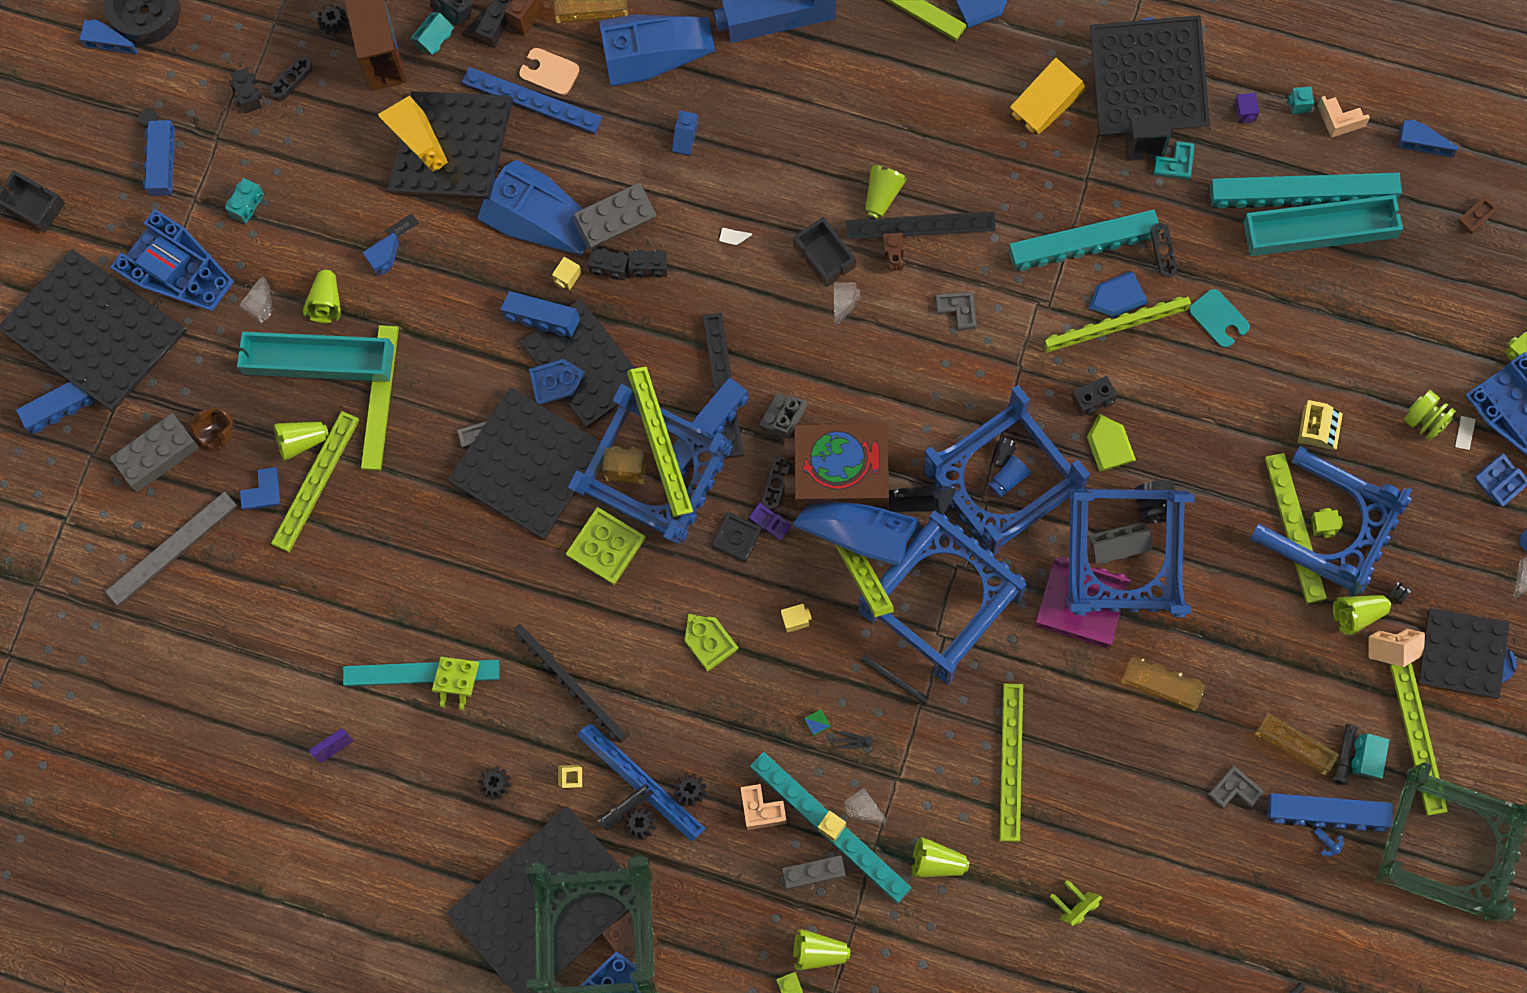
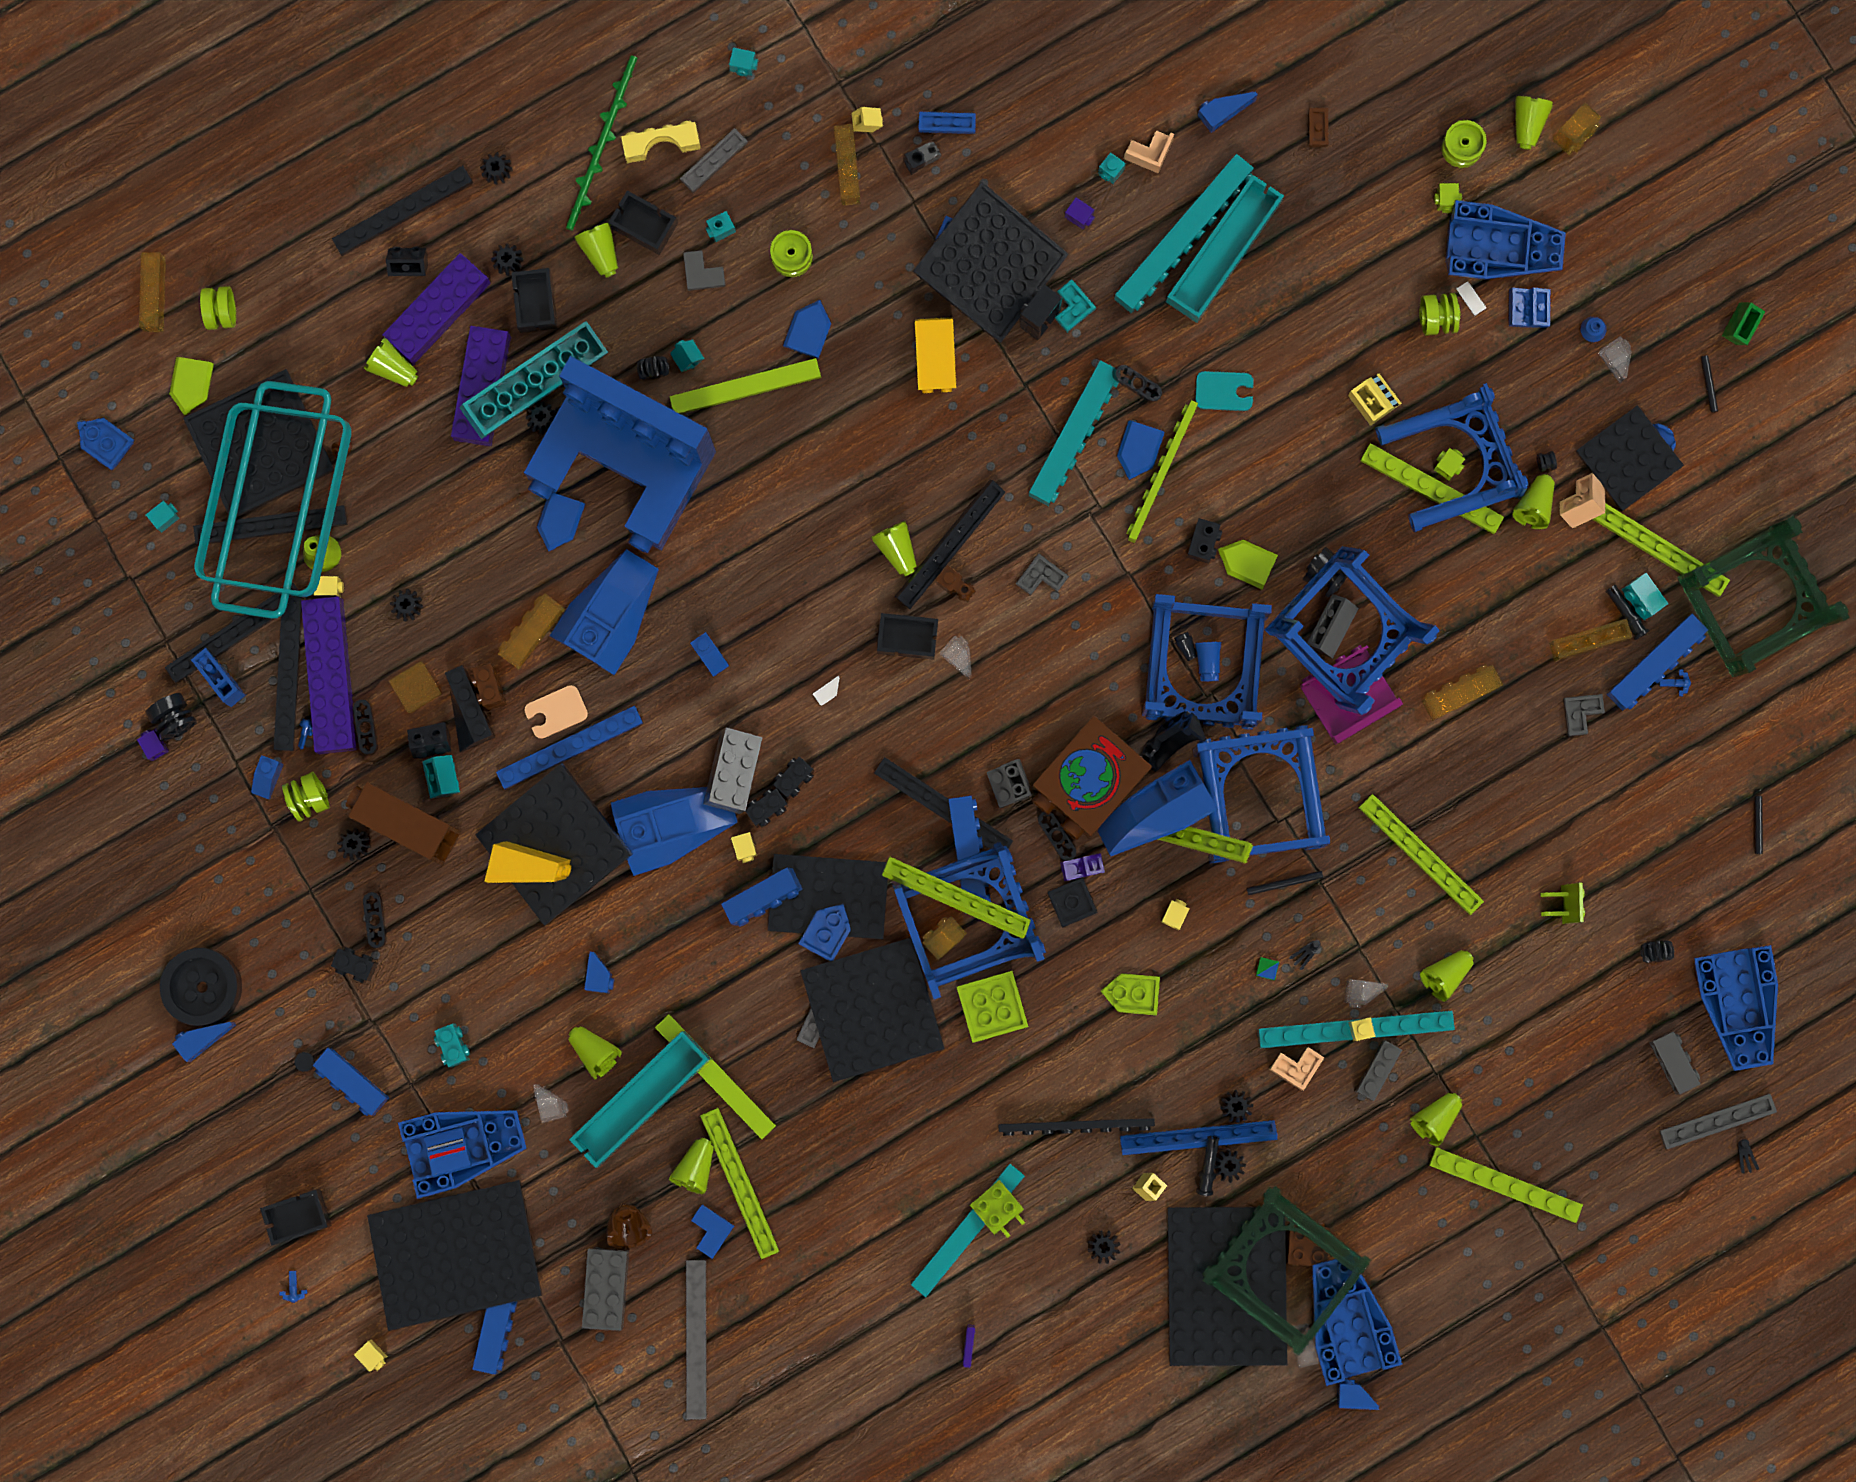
camera: 50 degrees left, 10 degrees up
(403, 226) = (584, 939): black sticker -> none

